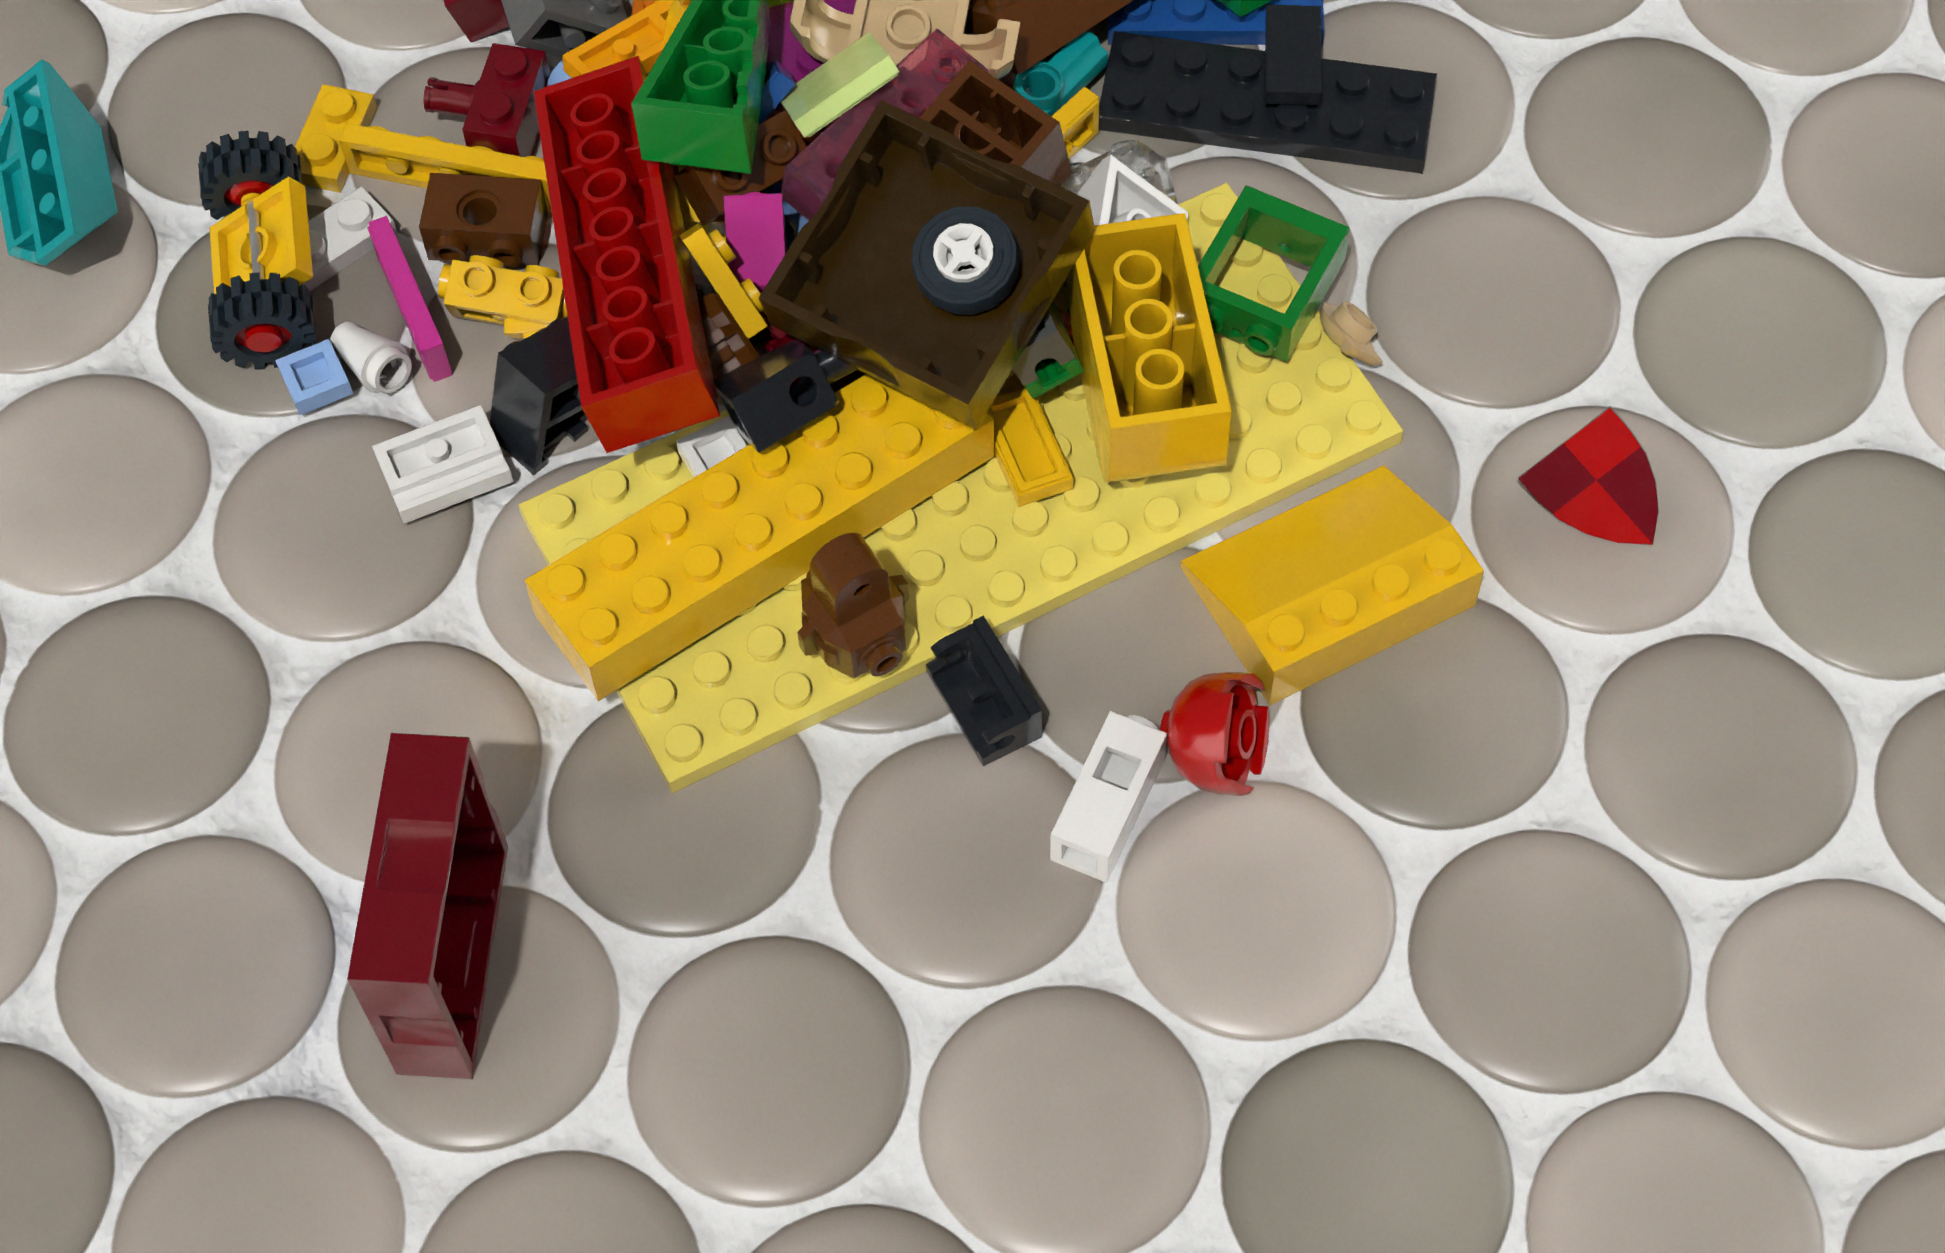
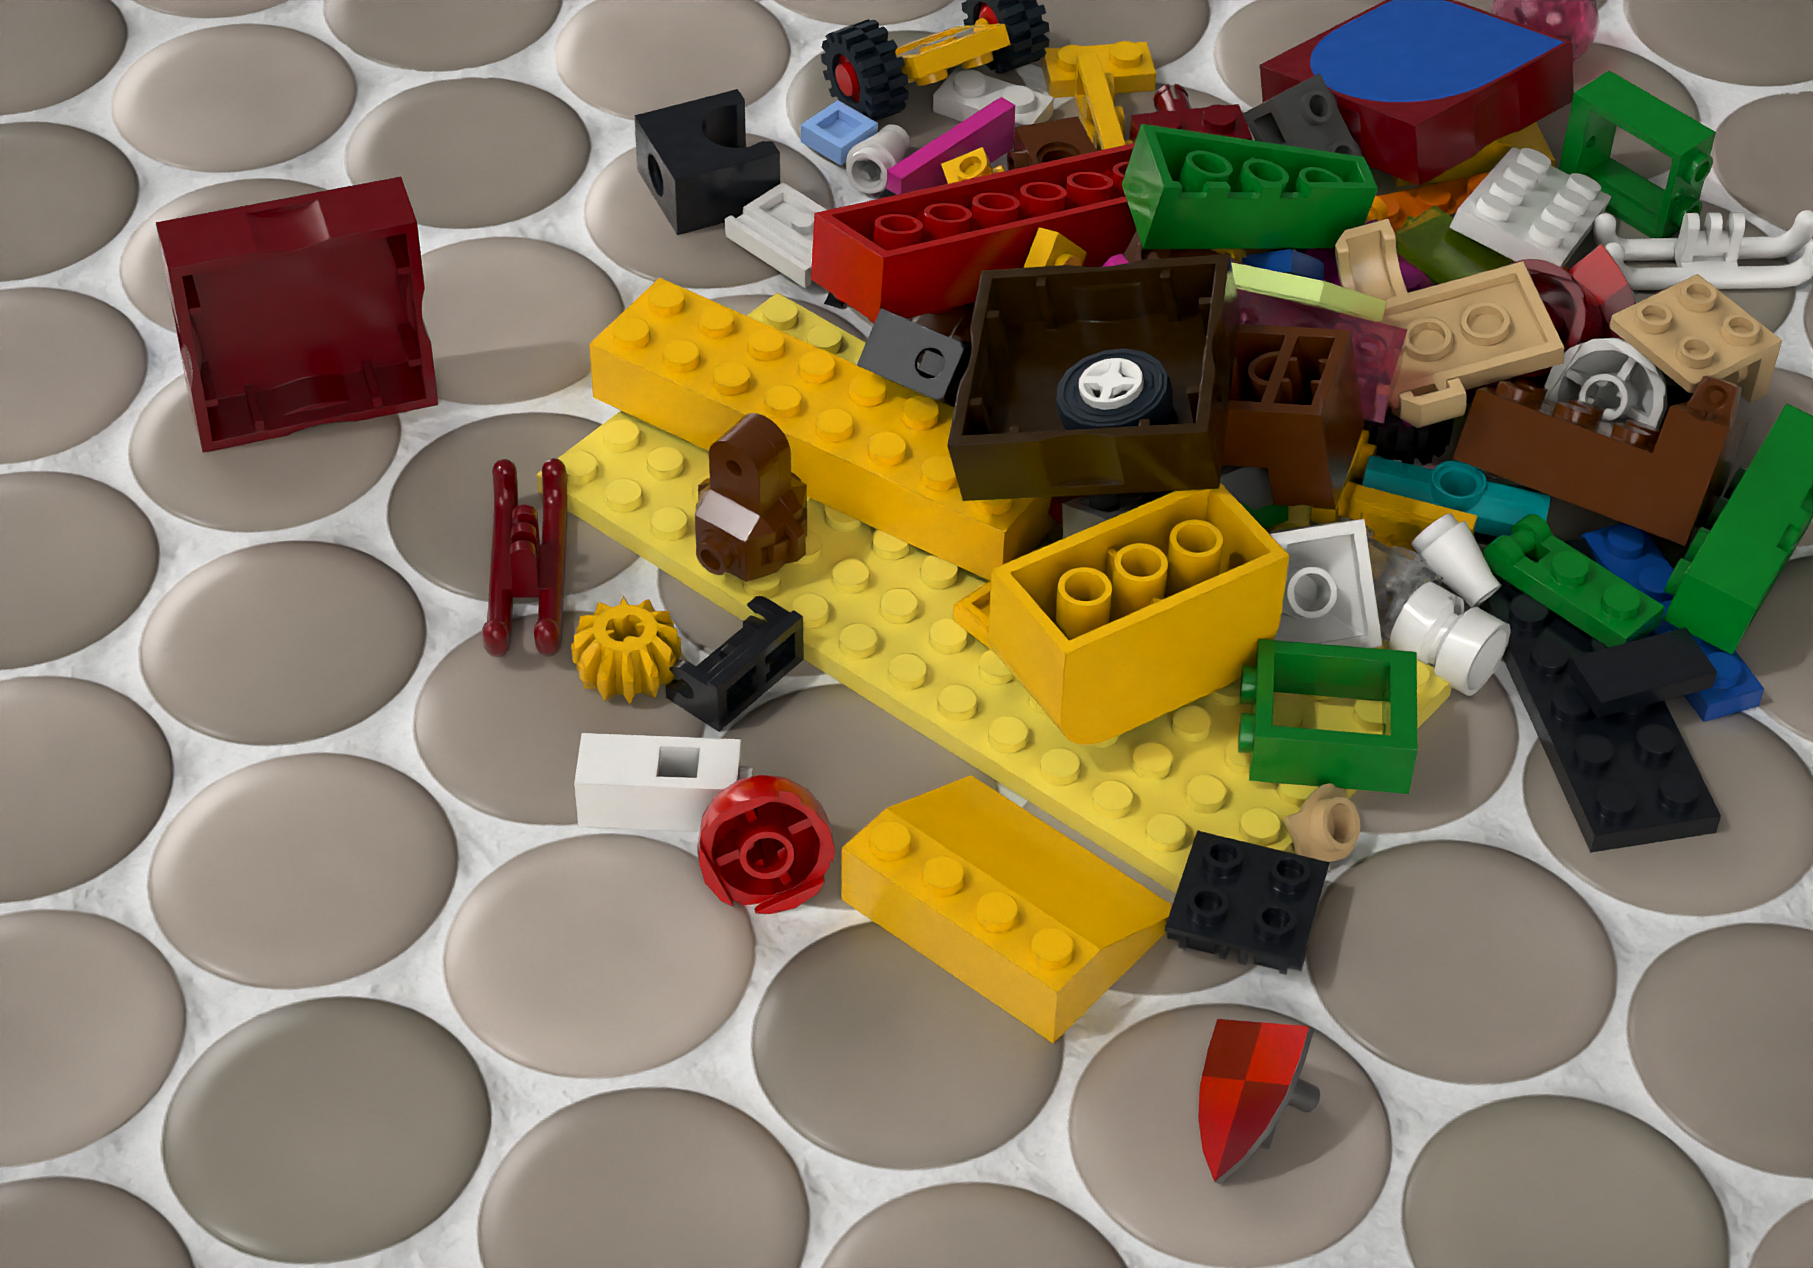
camera: 65 degrees right, 15 degrees down
(311, 521) = (700, 163): none -> black piece
(785, 829) = (521, 564): none -> dark red piece
(935, 754) = (626, 649): none -> yellow gear
(1120, 119) = (1457, 558): none -> white cone
(1181, 57) = (1572, 584): none -> green plate
(1203, 160) = (1457, 642): none -> white wheel
(1411, 411) = (1246, 901): none -> black hinge

